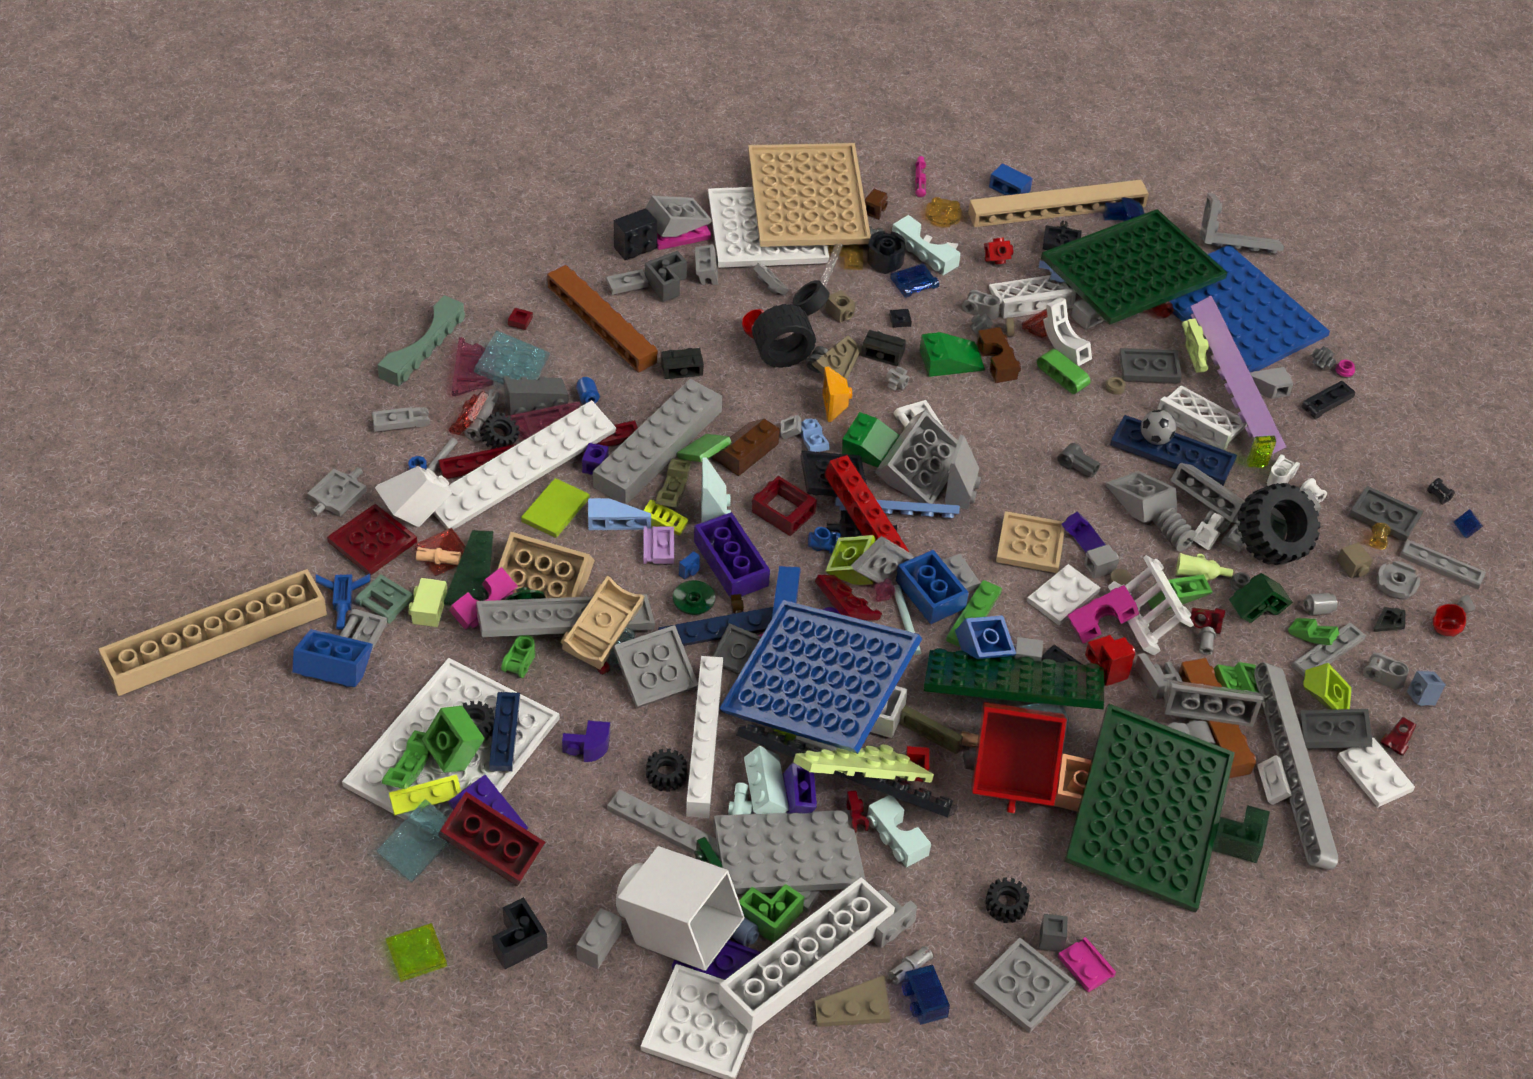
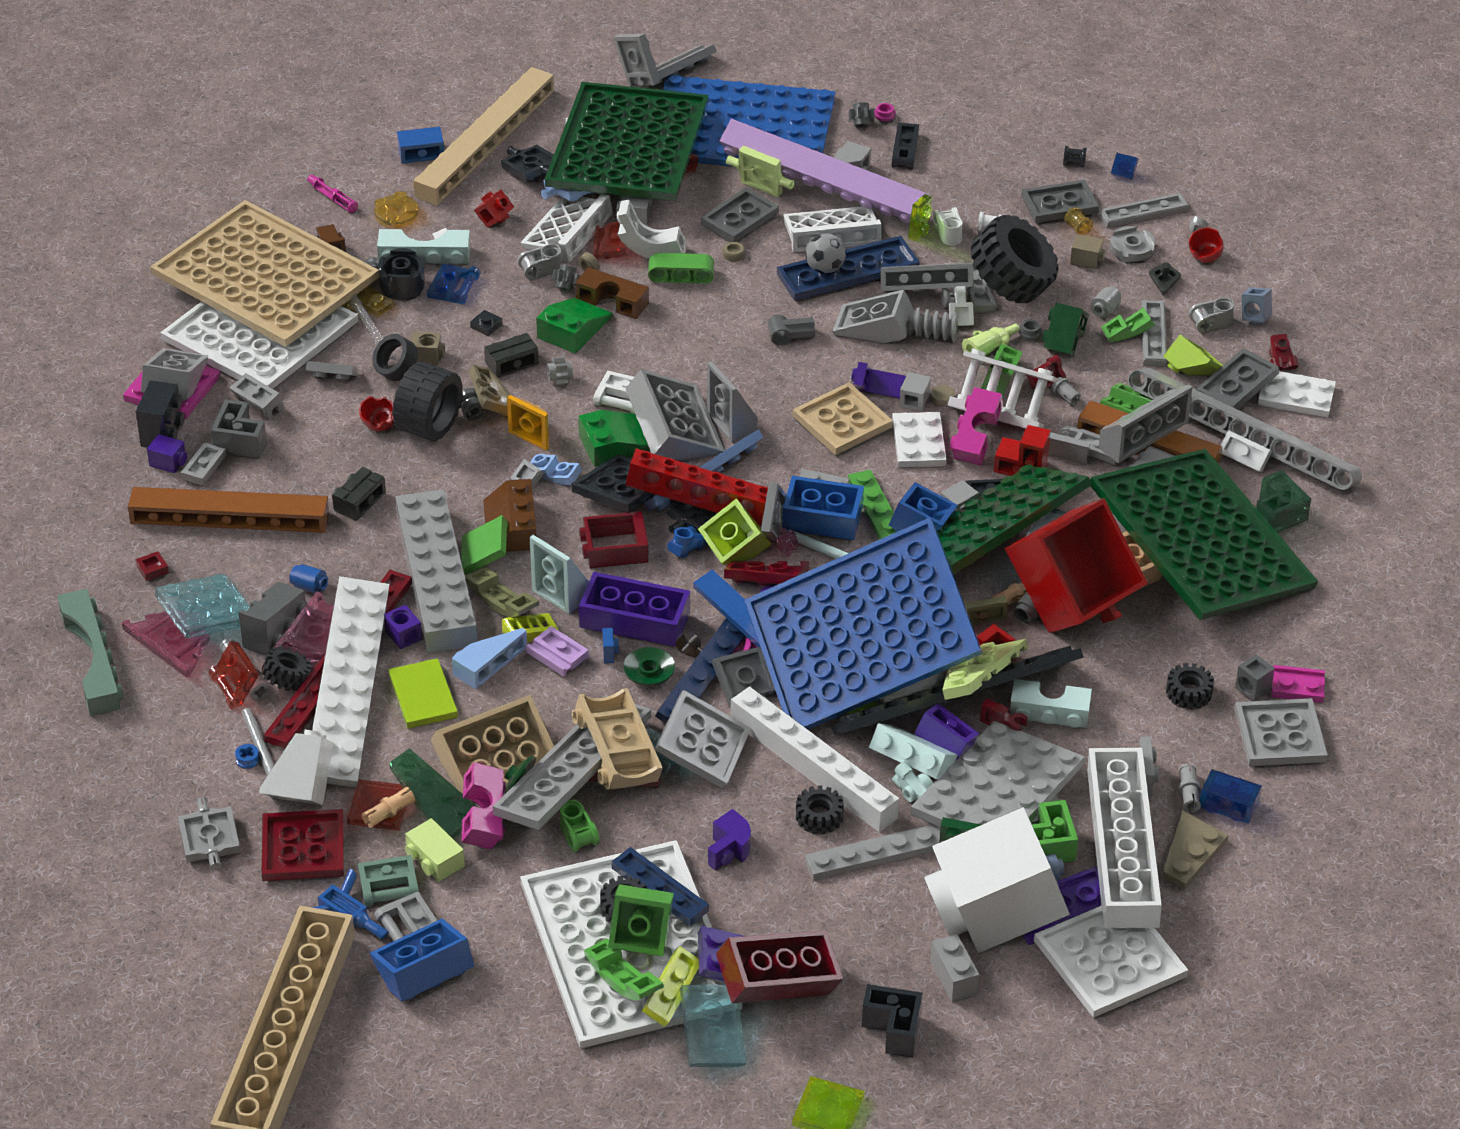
camera: 45 degrees left, 5 degrees down
(400, 418) = (169, 731): light grey hinge -> none
(615, 260) = (166, 453): none -> dark purple brick
(1122, 210) = (551, 102): clear blue brick -> none

